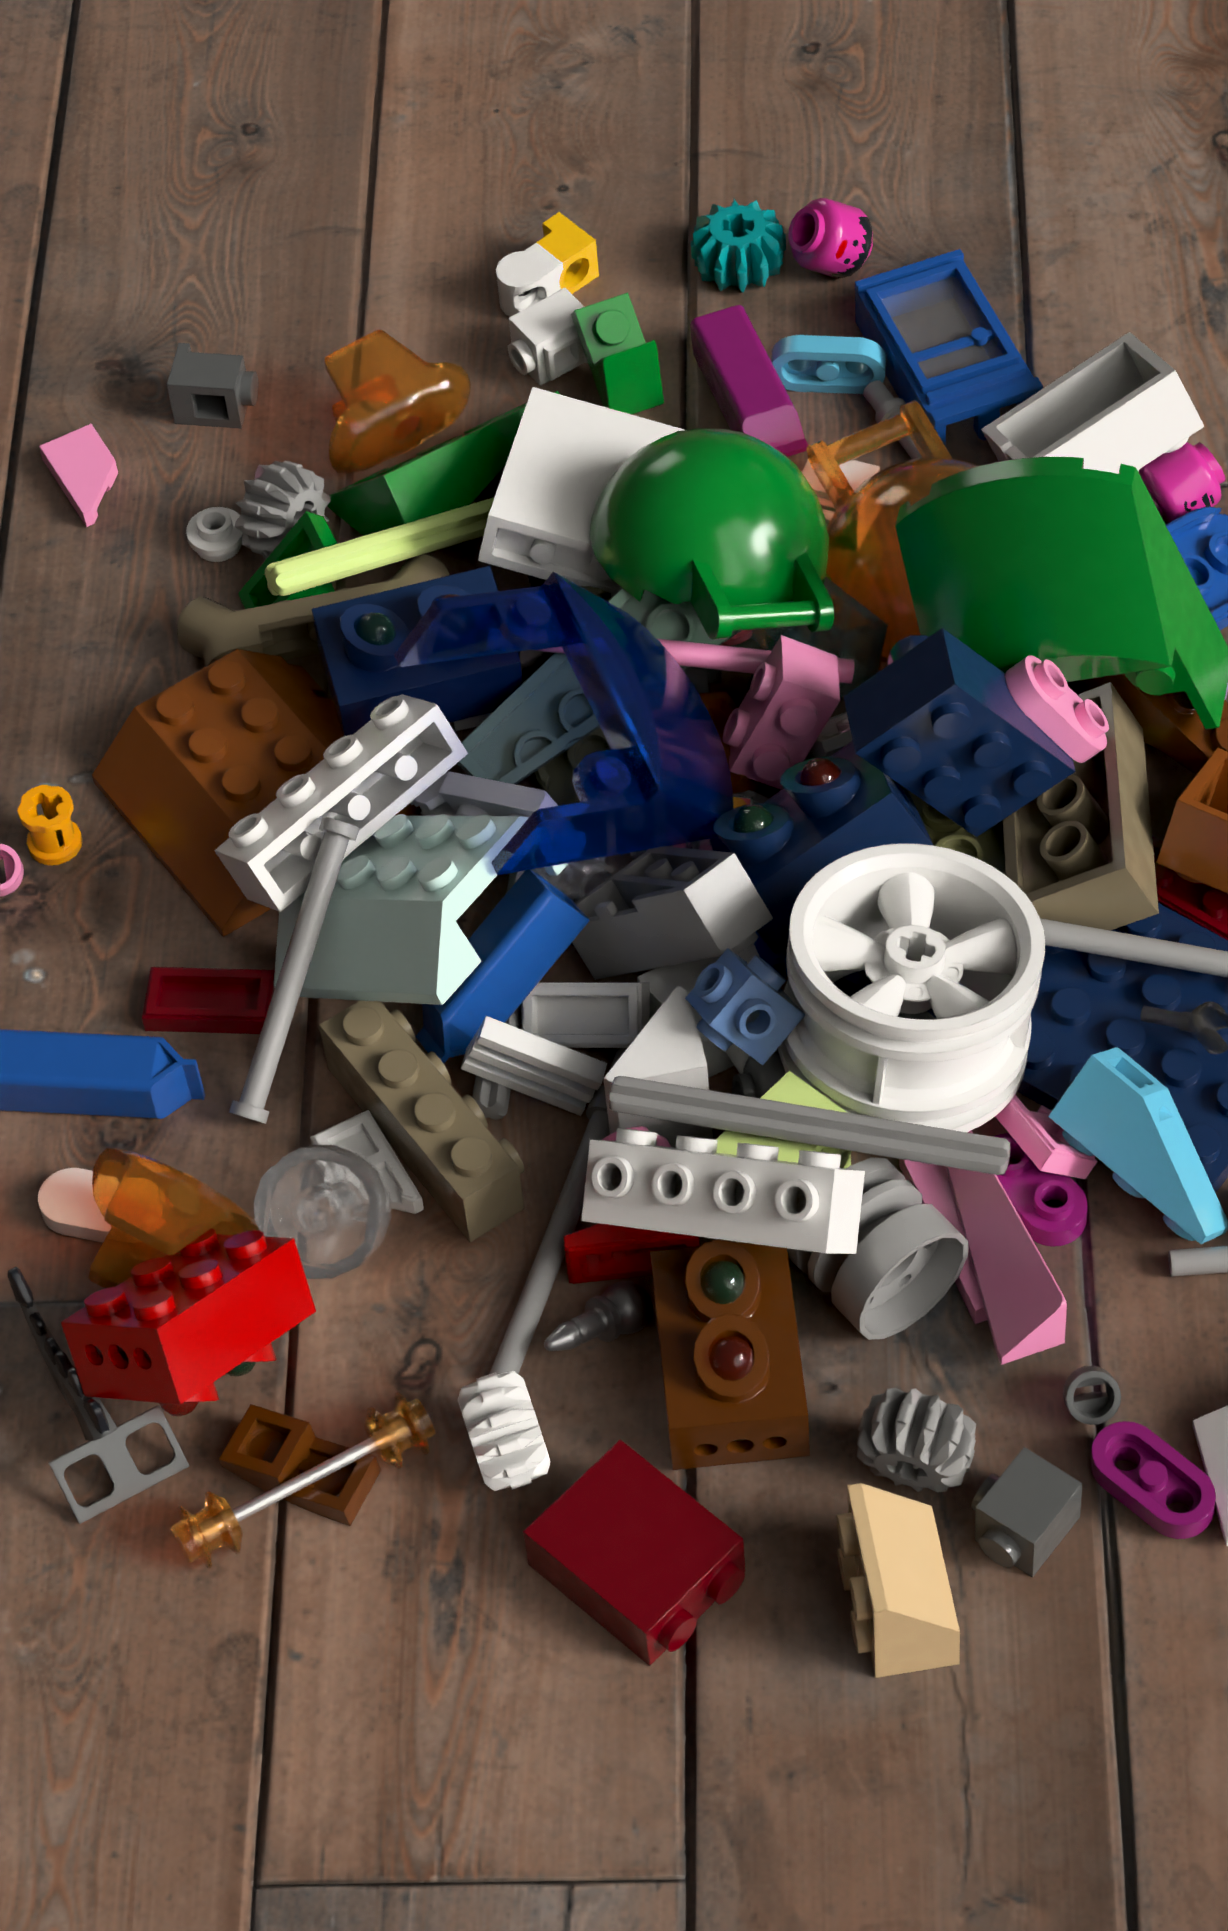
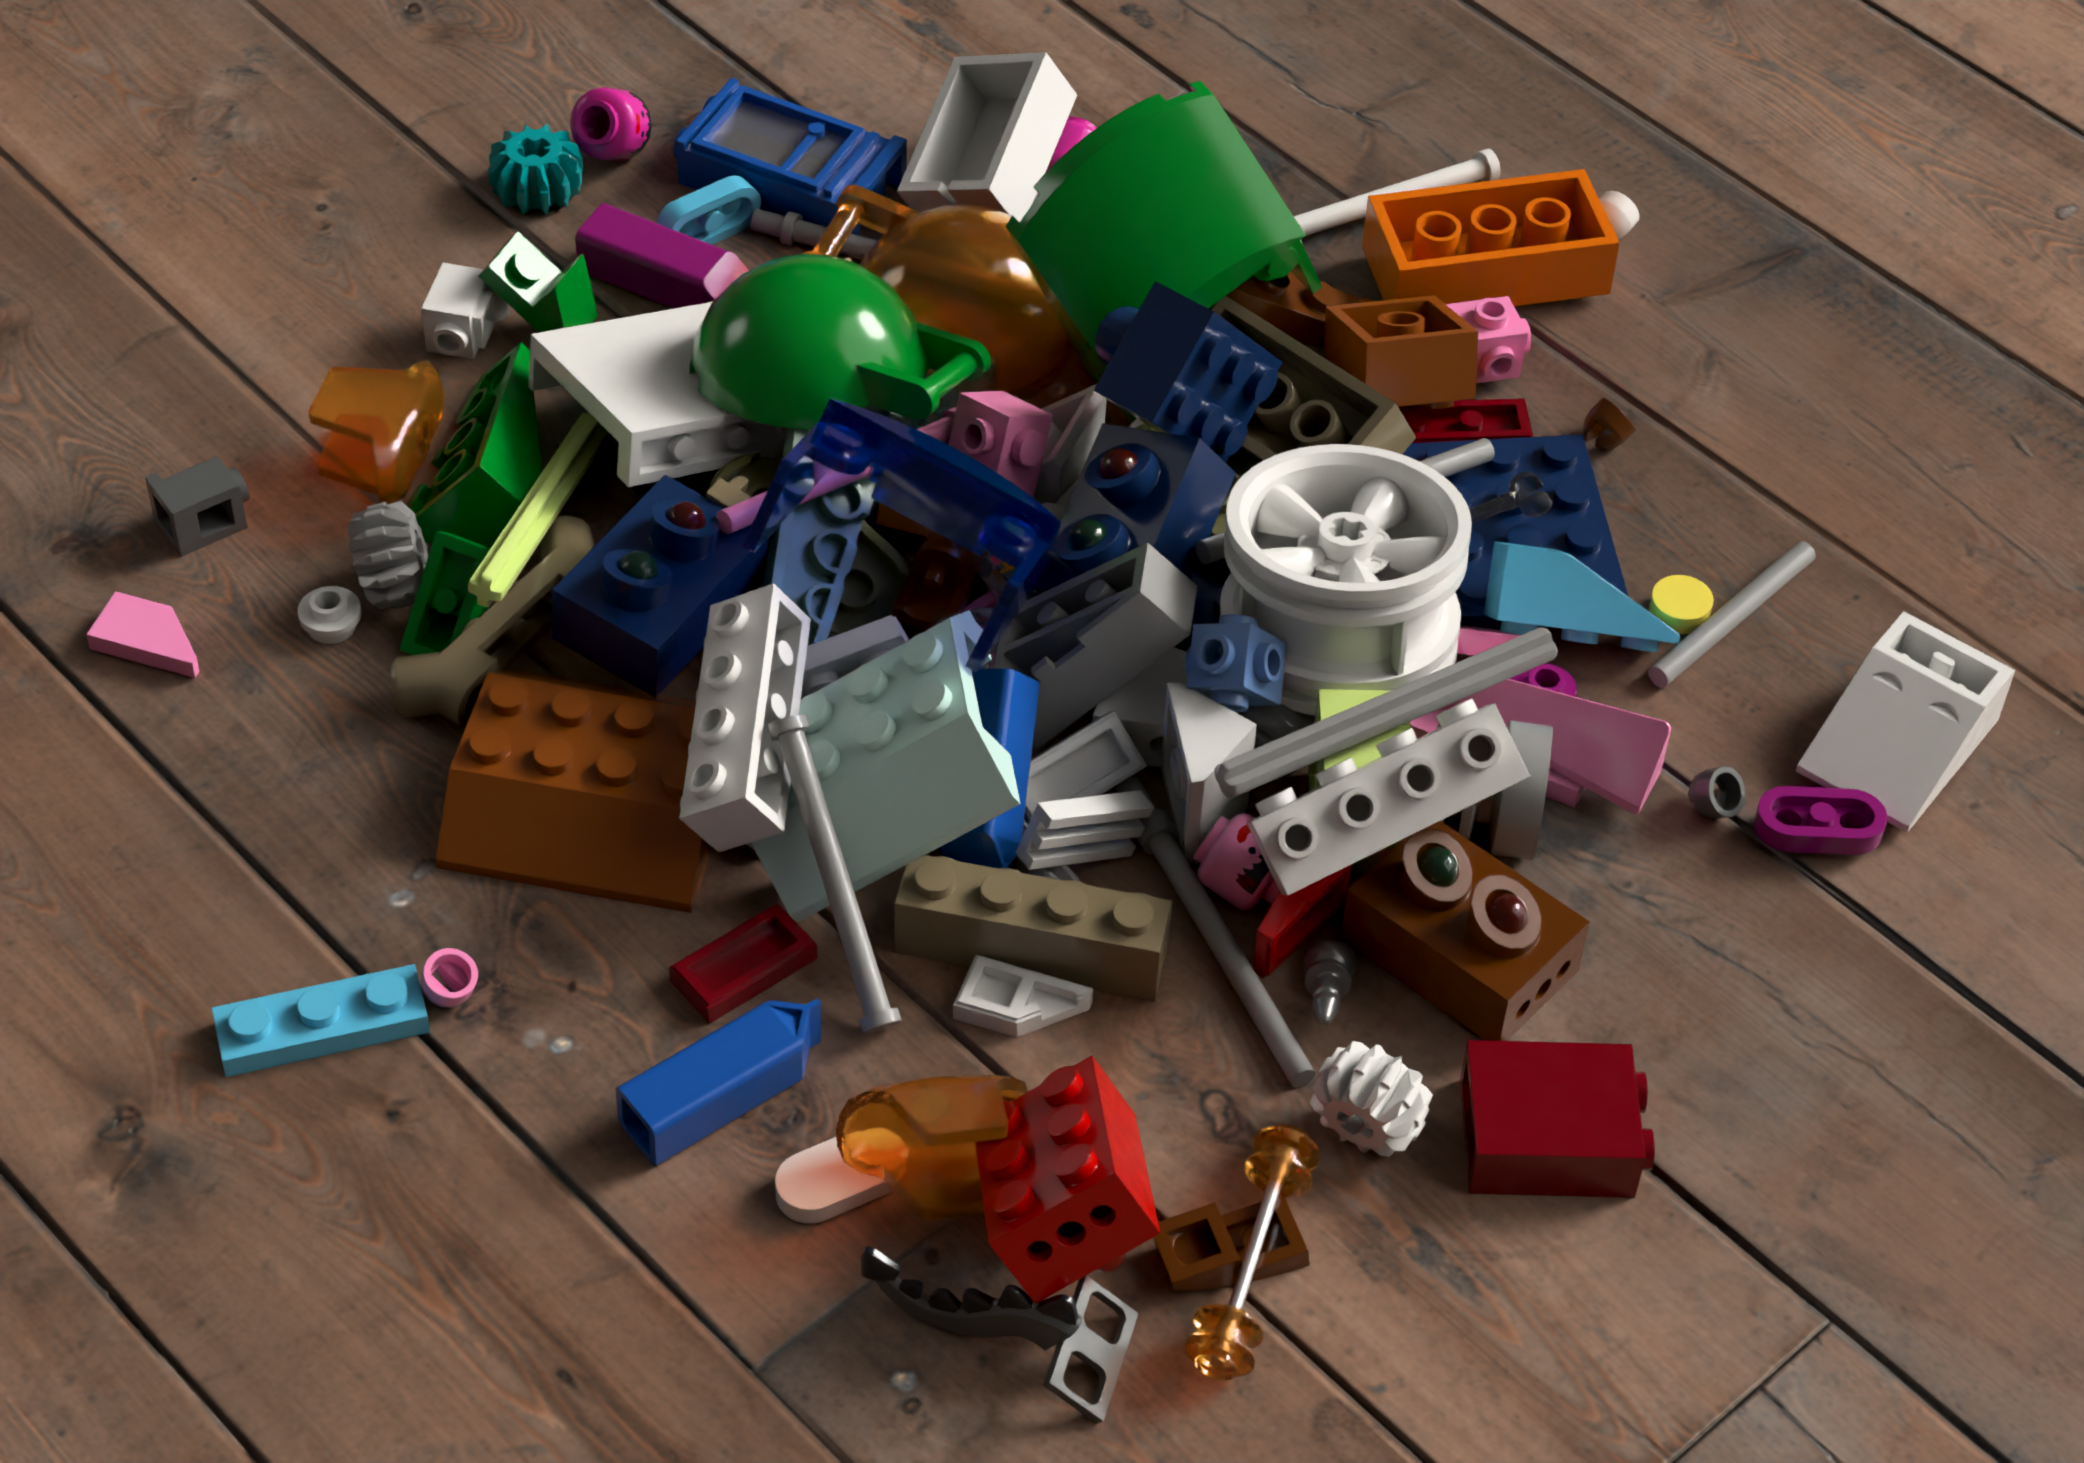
camera: 50 degrees left, 5 degrees down
(42, 836) = (454, 908): light orange bush -> none
(329, 1204) = (1052, 1023): clear cylinder -> none
(557, 261) = (393, 265): leg -> none
(896, 1582) = (1755, 1006): tan slope -> none
(916, 1440) = (1658, 897): light grey gear -> none
(1025, 1512) = (1772, 897): dark grey brick -> none
(1056, 709) = (1251, 321): bright pink plate -> none

